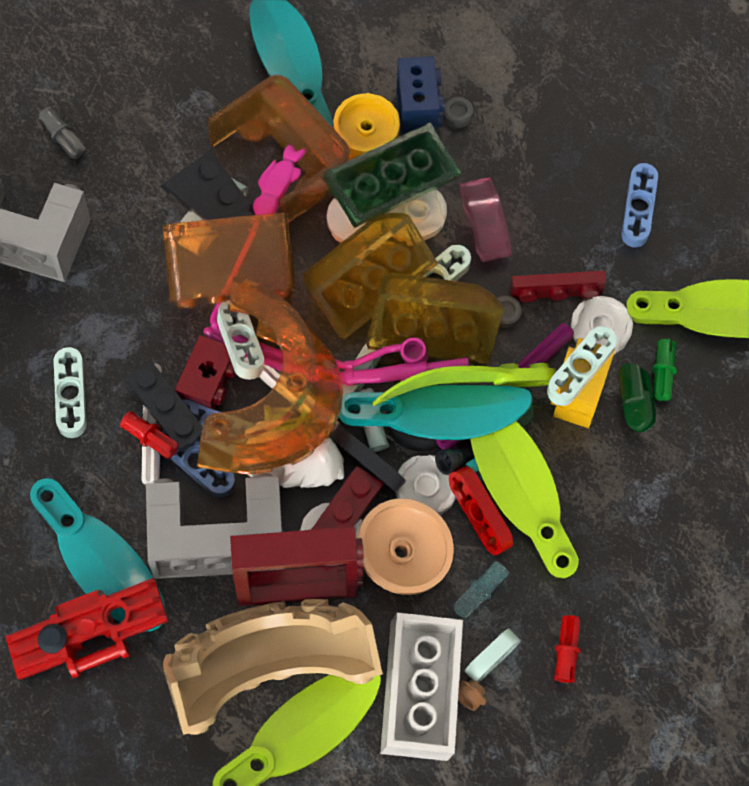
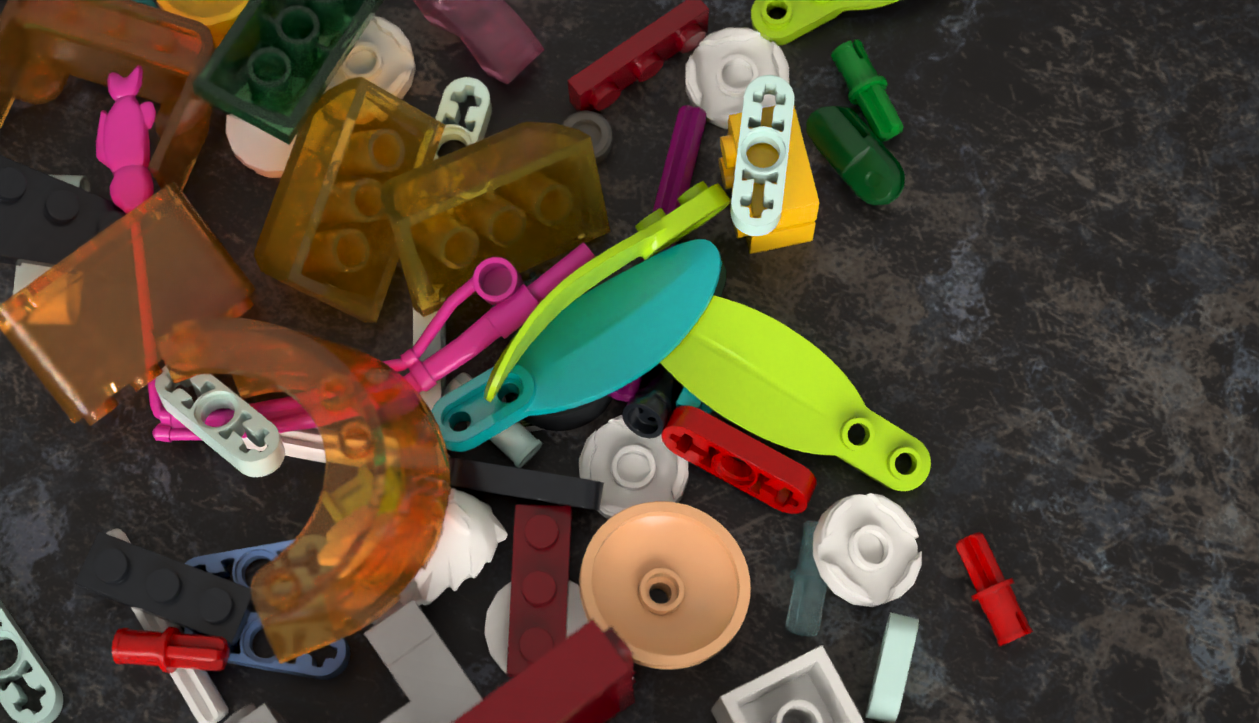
camera: 25 degrees left, 5 degrees up
(206, 358) = (181, 475): dark red brick -> none
(516, 592) = (867, 549): none -> white tile

